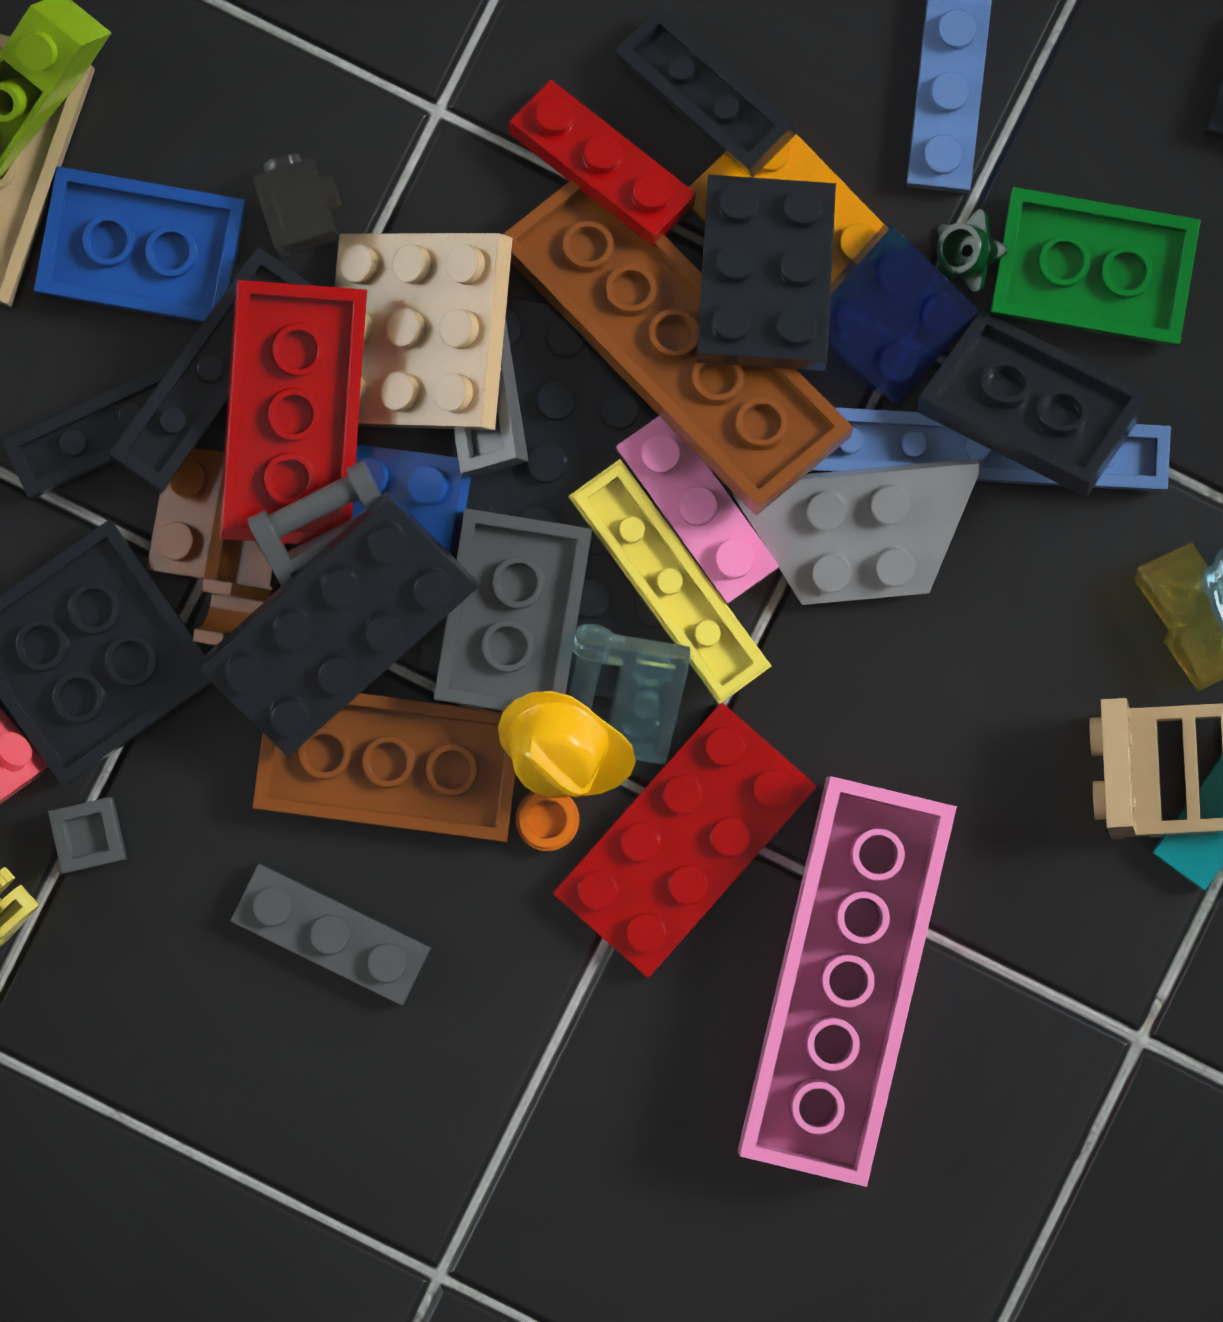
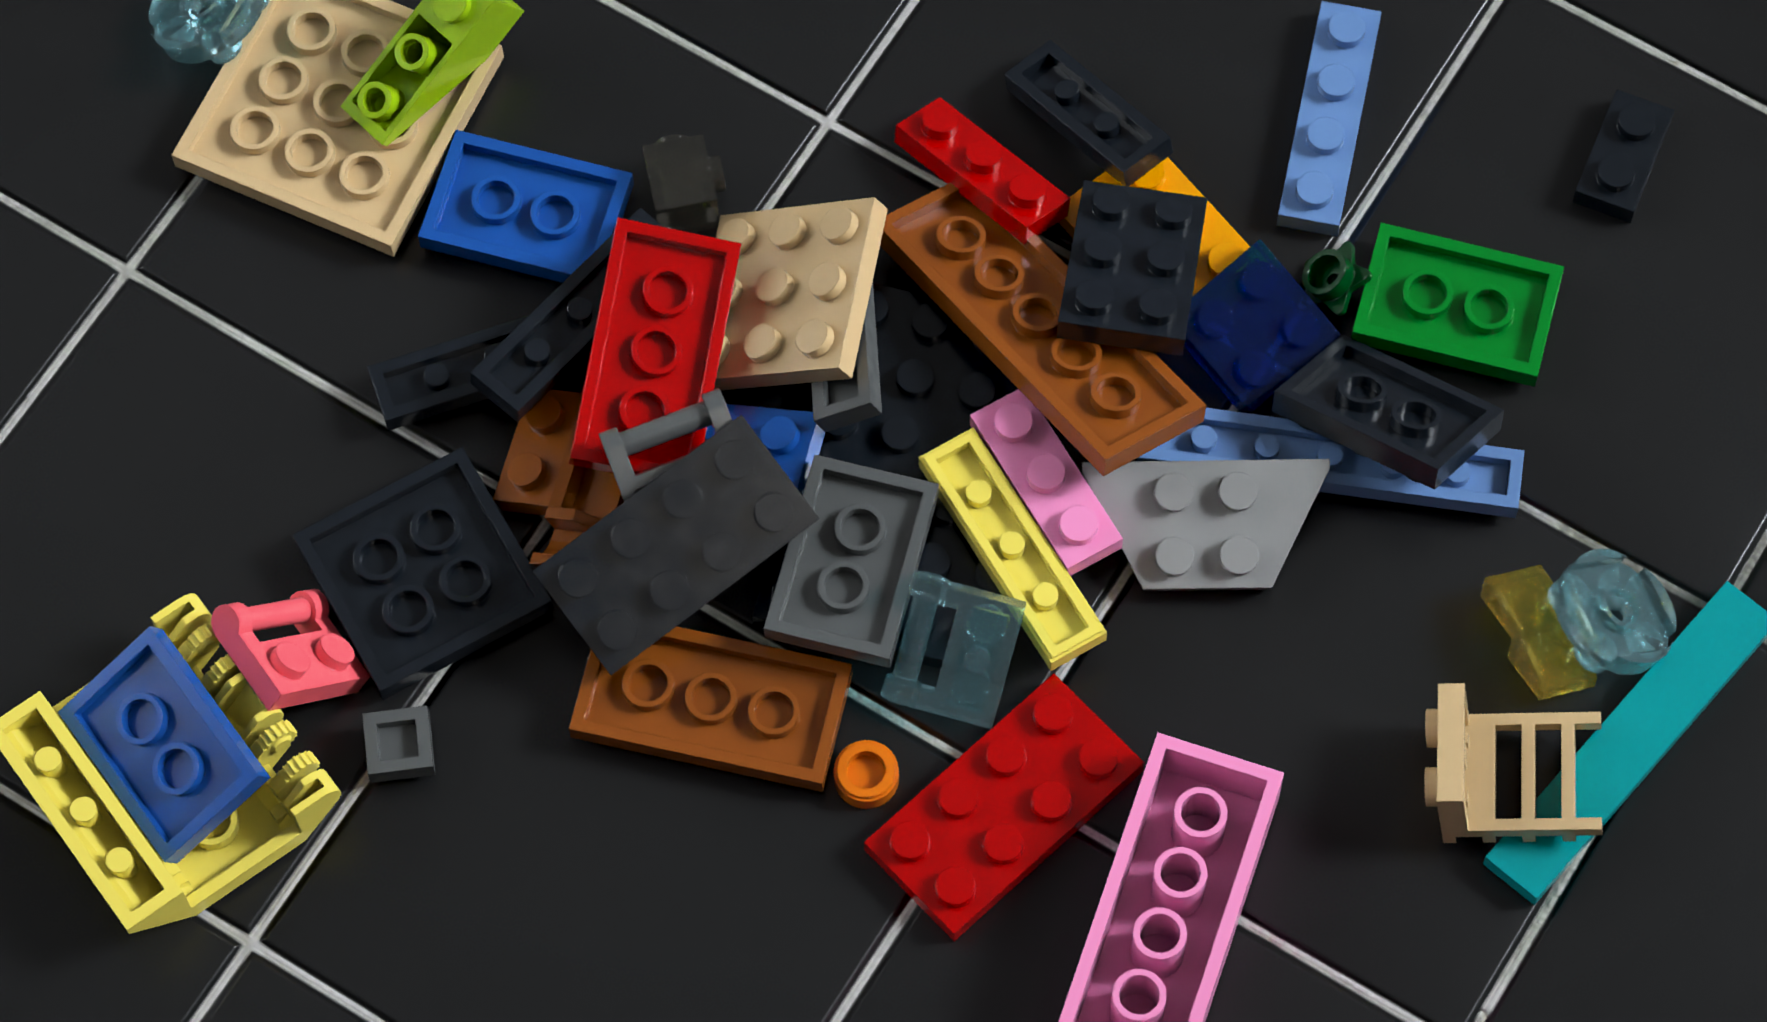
camera: 10 degrees right, 20 degrees down
(330, 934) = (633, 866): dark grey plate -> none
(563, 746) = (892, 691): yellow piece -> none

